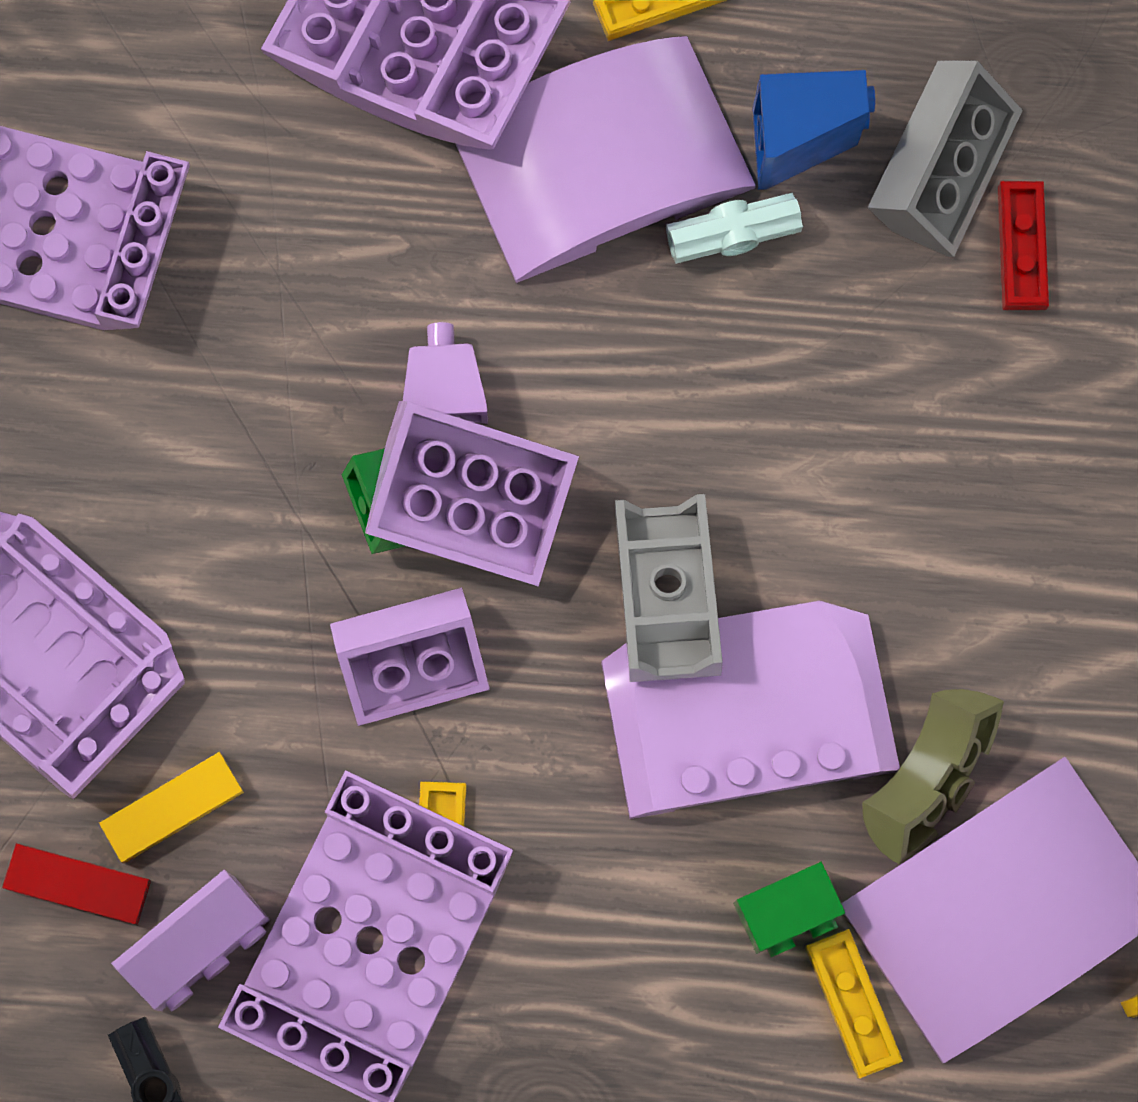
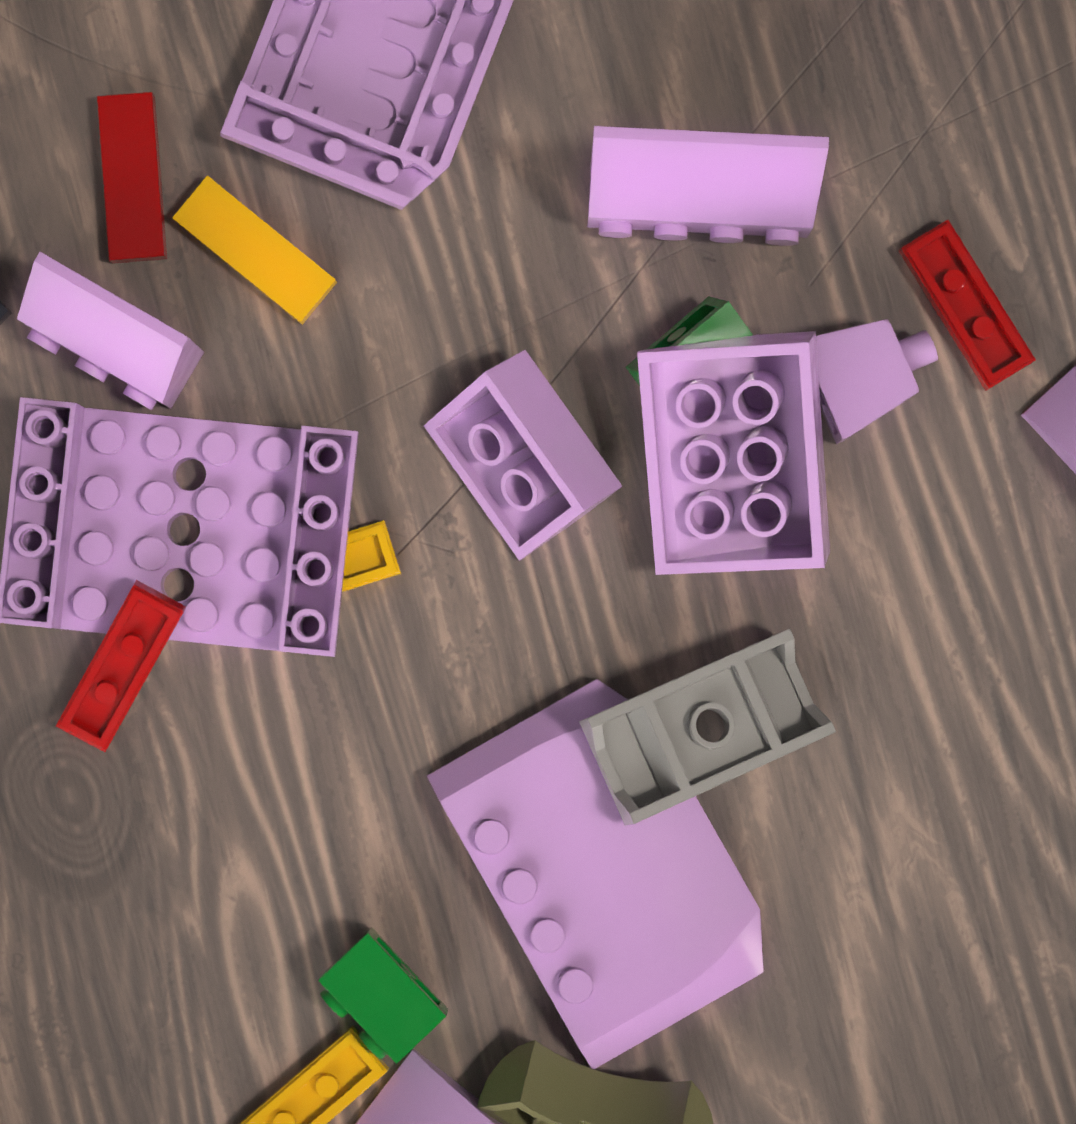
camera: 75 degrees right, 10 degrees up
(256, 443) = (705, 184): none -> lavender slope
(420, 291) = (966, 305): none -> red tile
(459, 1027) = (121, 666): none -> red tile

